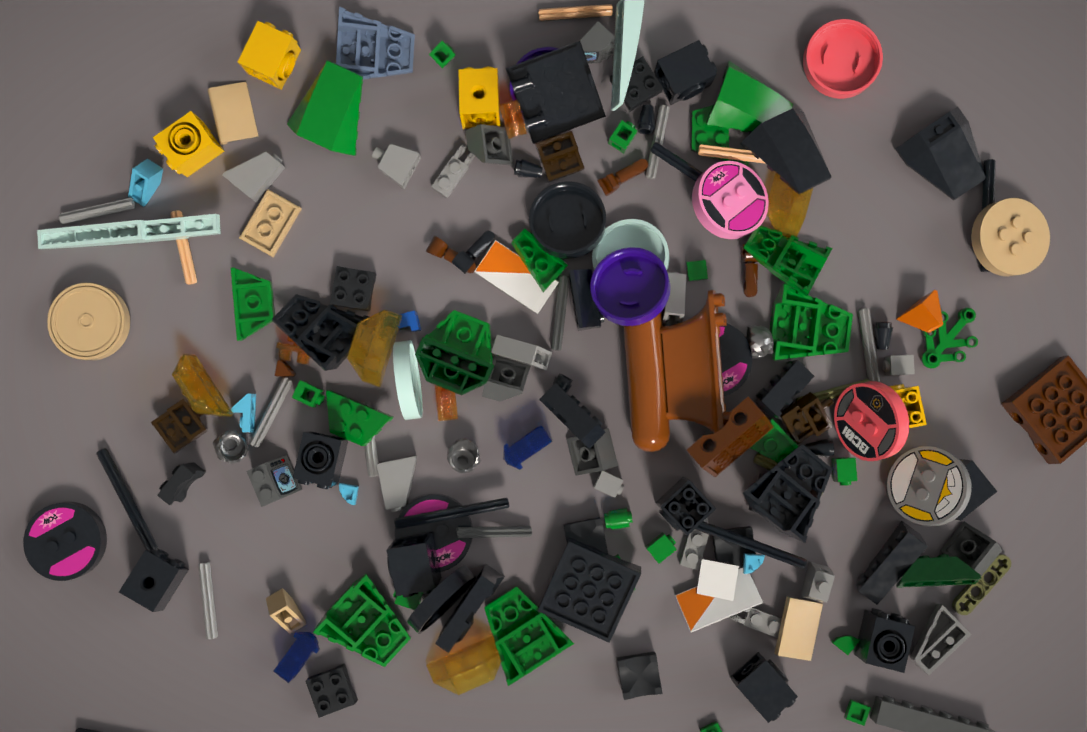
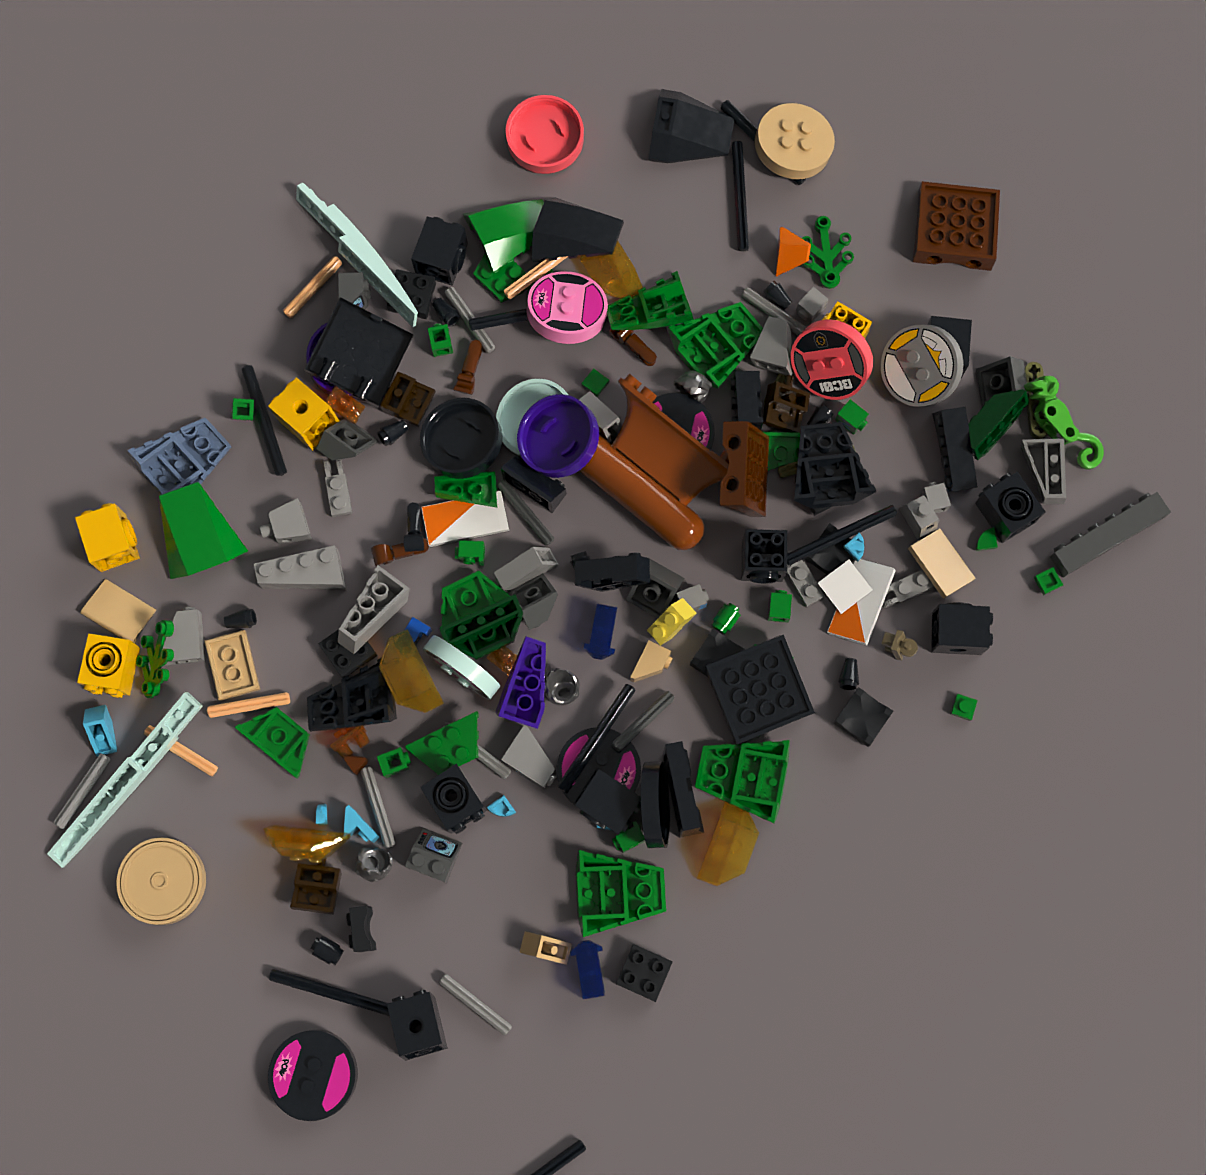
camera: 45 degrees left, 10 degrees down
(149, 472) = (326, 950): none -> black brick
(220, 170) = (157, 658): none -> green plant
(230, 381) = (321, 814): none -> medium azure tile
(255, 260) = (248, 705): none -> light nougat axle
(306, 199) = (242, 619): none -> black cone
(379, 209) = (303, 570): none -> light grey wedge
(394, 279) = (372, 609): none -> light grey wedge
(439, 432) = (524, 689): none -> dark purple wedge
(451, 75) = (264, 420): none -> black axle
(496, 304) = (470, 552): none -> green brick
(540, 498) = (651, 662): none -> tan slope
(578, 487) = (671, 621): none -> light yellow brick
(659, 638) = (849, 675): none -> black cone
(713, 656) = (899, 645): none -> dark tan hips
(842, 369) = (774, 347): none -> light grey slope
(843, 581) = (937, 496): none -> light grey brick
(931, 238) = (740, 196): none -> black axle
(982, 617) = (1059, 420): none -> bright green animal

